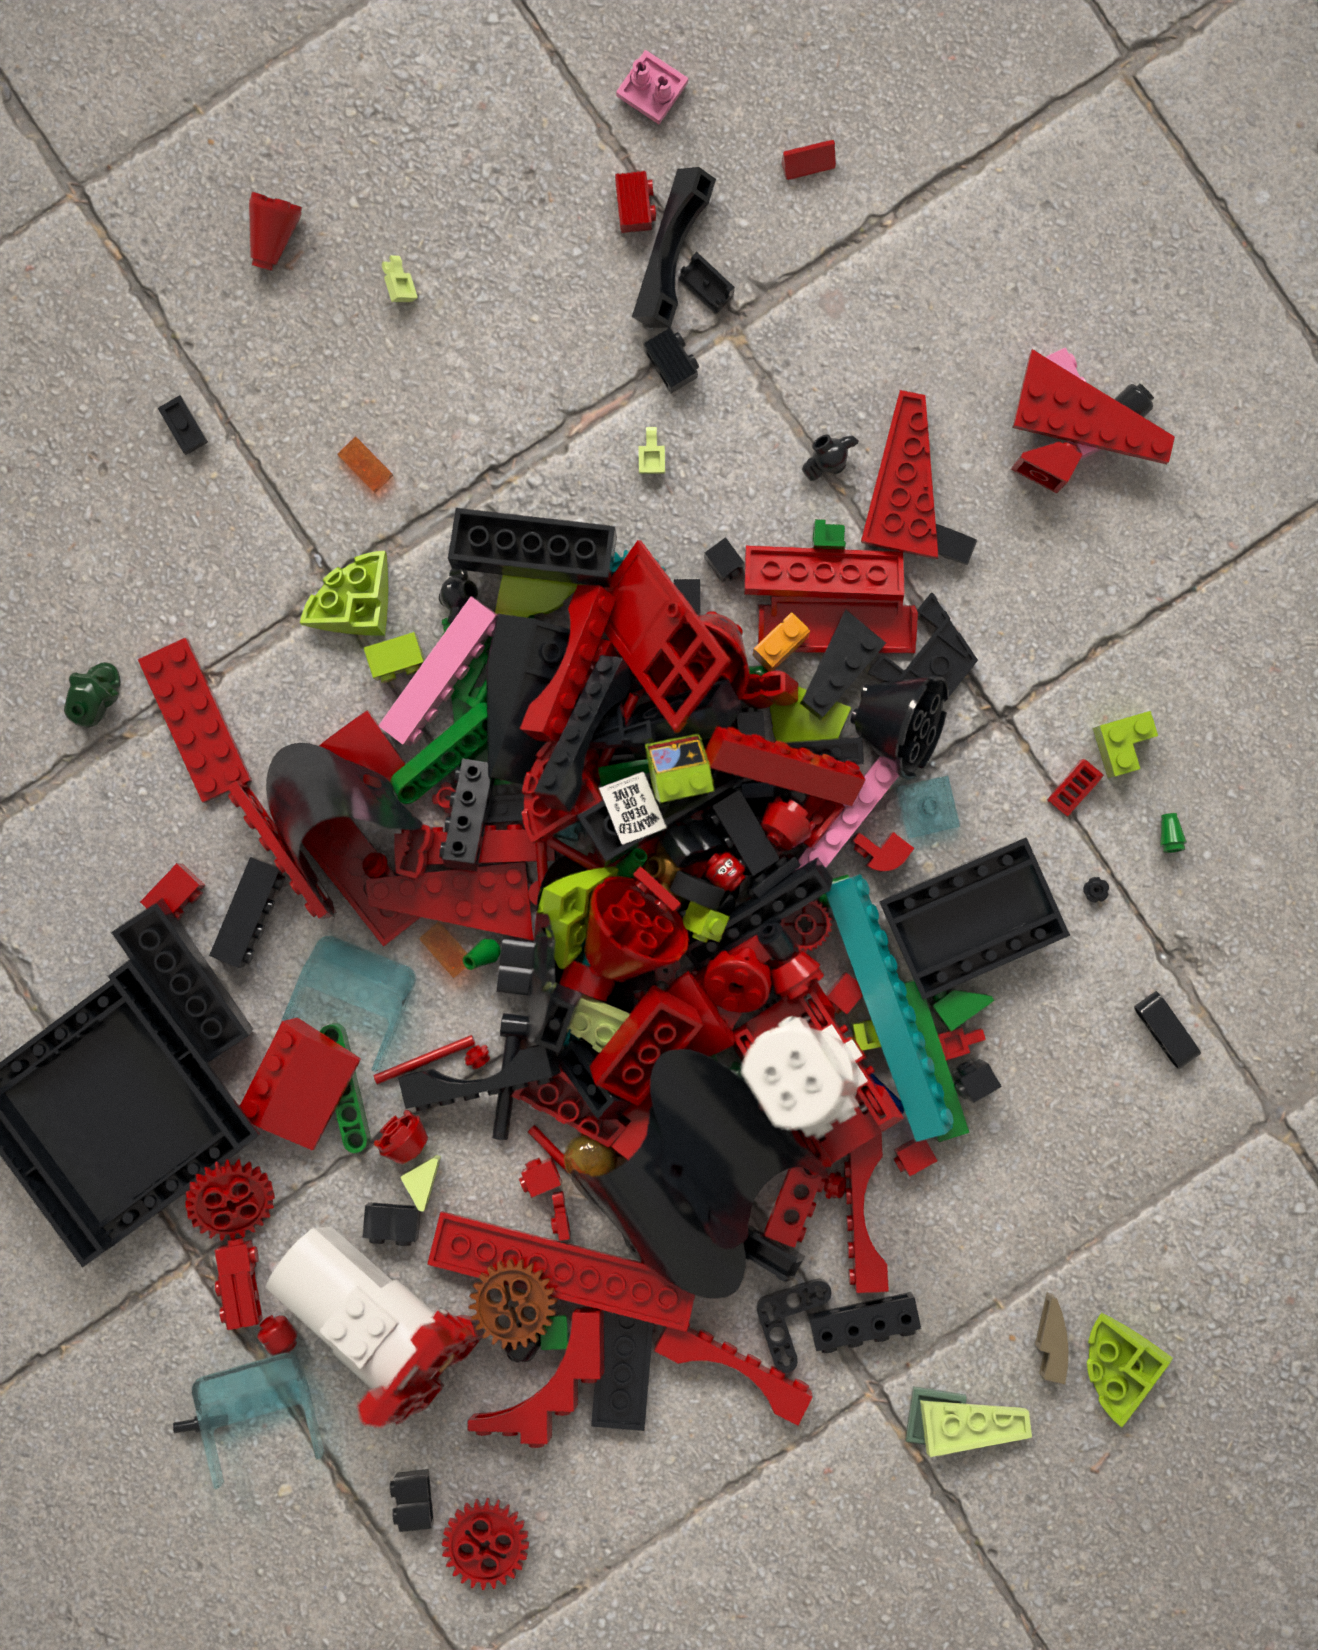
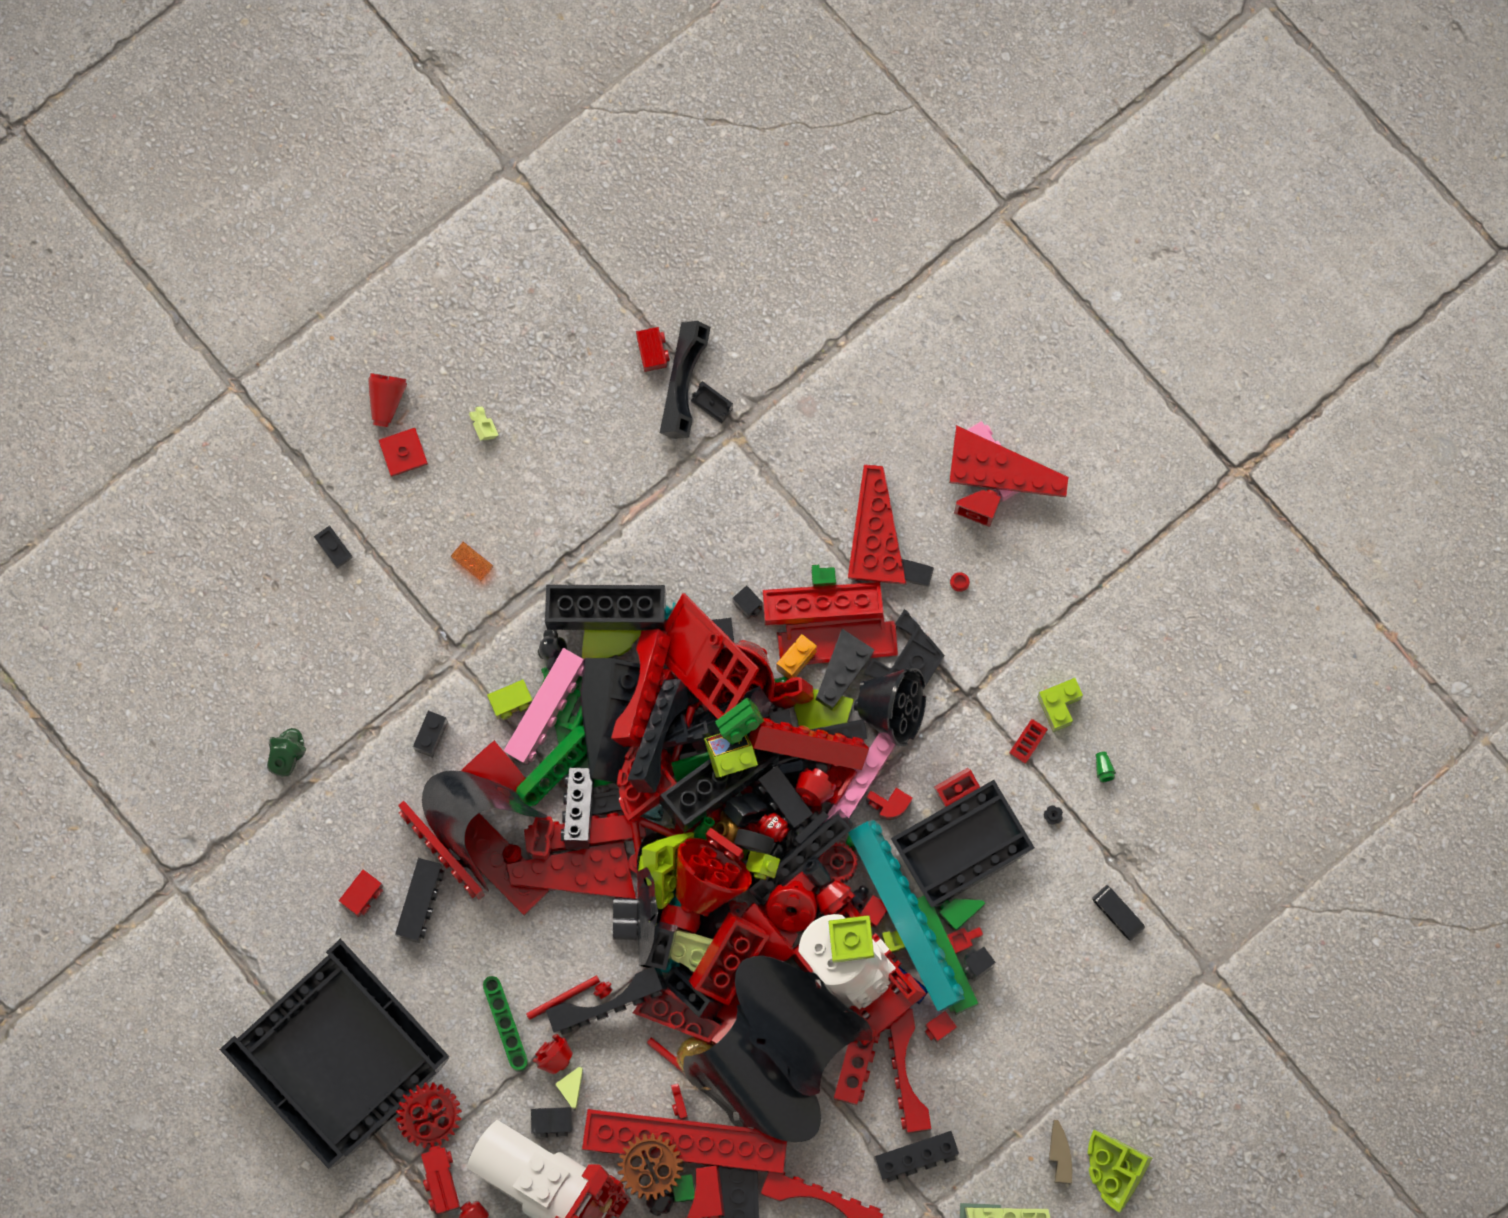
camera: 10 degrees left, 10 degrees down
(183, 979) = (377, 951): black brick -> none
(194, 719) = (363, 763): red plate -> none
(285, 691) = (430, 734): none -> black brick
(288, 306) = (403, 452): none -> red plate
(299, 1083) = (473, 1021): red slope -> none
(352, 598) = (472, 660): lime brick -> none
(359, 979) = (506, 940): clear light blue windscreen -> none
(439, 798) = (558, 794): red plate -> none
(445, 948) = (571, 912): clear orange plate -> none
(482, 954) = (600, 911): green cone -> none
(513, 1029) = (628, 966): black piece -> none
(540, 1176) = (660, 1074): red brick -> none
(632, 808) = (700, 785): white sticker -> none
(651, 456) = (685, 532): yellowish green plate -> none
(652, 87) = (656, 265): bright pink plate -> none
(671, 360) = (692, 460): black brick -> none
(695, 729) = (739, 721): none -> green brick
(771, 1256) = (848, 1114): black piece -> none
(784, 1310) = (855, 1155): black beam -> none
(809, 159) = (778, 305): red slope -> none
(818, 1068) = (851, 939): none -> lime plate
(828, 456) = (816, 518): black piece -> none
(829, 968) = (860, 896): none -> black arm
(835, 1186) = (883, 1056): red plate -> none
(927, 807) = (920, 767): clear light blue tile -> none
(974, 840) = (956, 787): none -> red brick
(1008, 563) = (959, 582): none -> red plate
(1137, 399) = (1039, 453): black head -> none

